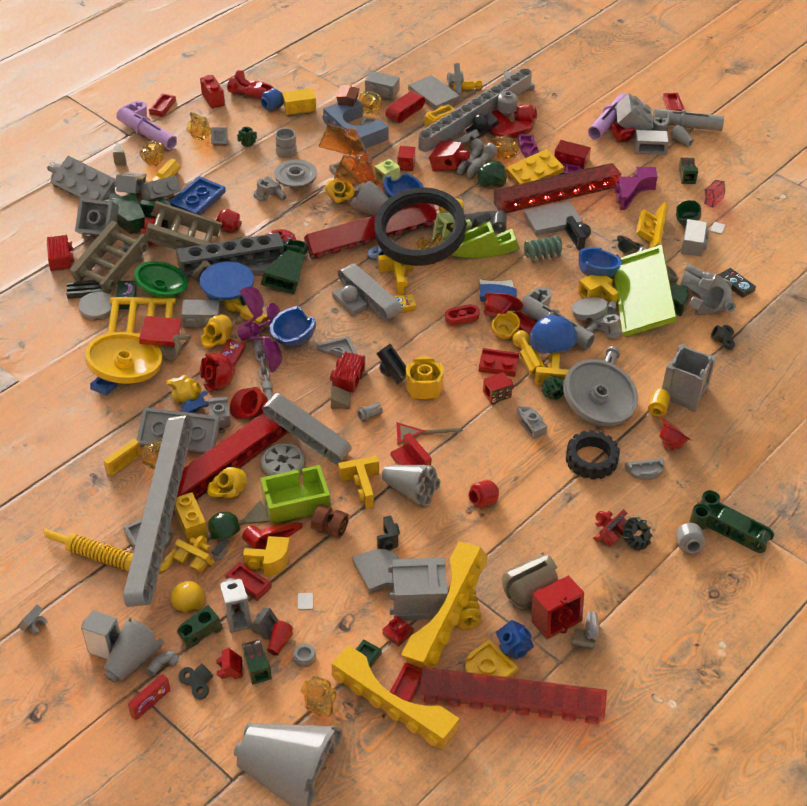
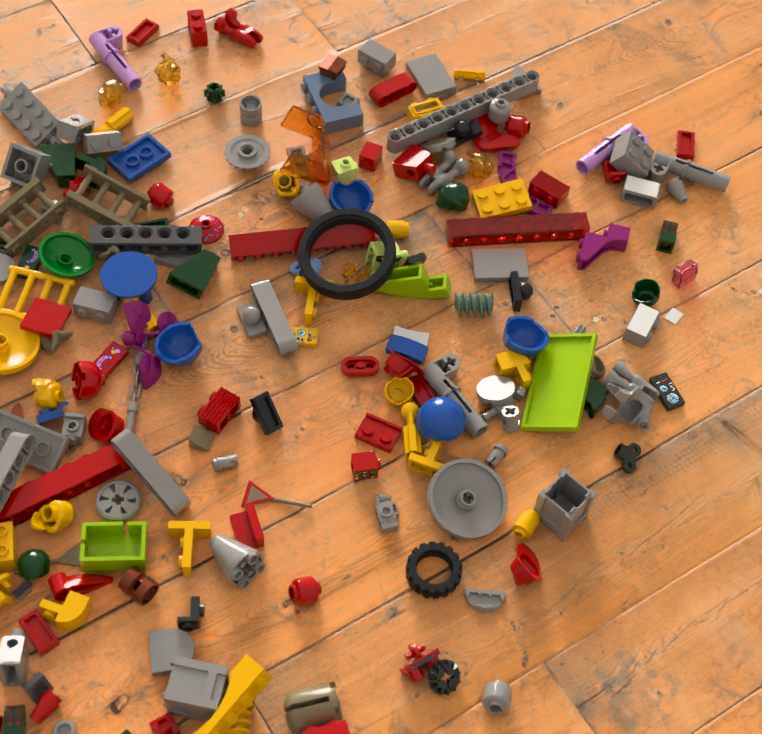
camera: 10 degrees right, 10 degrees up
(119, 155) = (75, 89): dark tan slope -> none
(216, 331) = (102, 331): yellow head -> none
(219, 135) = (186, 85): light grey tile -> none
(268, 187) = (210, 163): light grey piece -> none
(272, 99) = (255, 51): blue head -> none
(296, 246) = (216, 244): dark green hair -> none
(299, 101) = (282, 60): yellow brick -> none
(305, 600) = (87, 668): white sticker -> none
(337, 346) = (221, 376): light grey tile -> none
(370, 101) = (355, 77): clear yellow head -> none
(424, 378) = (292, 437): yellow brick -> none
(455, 77) = (459, 64): light grey piece -> none
(498, 219) = (436, 255): dark grey piece -> none
(553, 387) = (420, 479): dark green gear -> none
(626, 244) = (566, 316): pearl dark grey piece -> none
(651, 226) = (599, 300): yellow bracket -> none
(730, 522) = (545, 688): dark green piece -> none

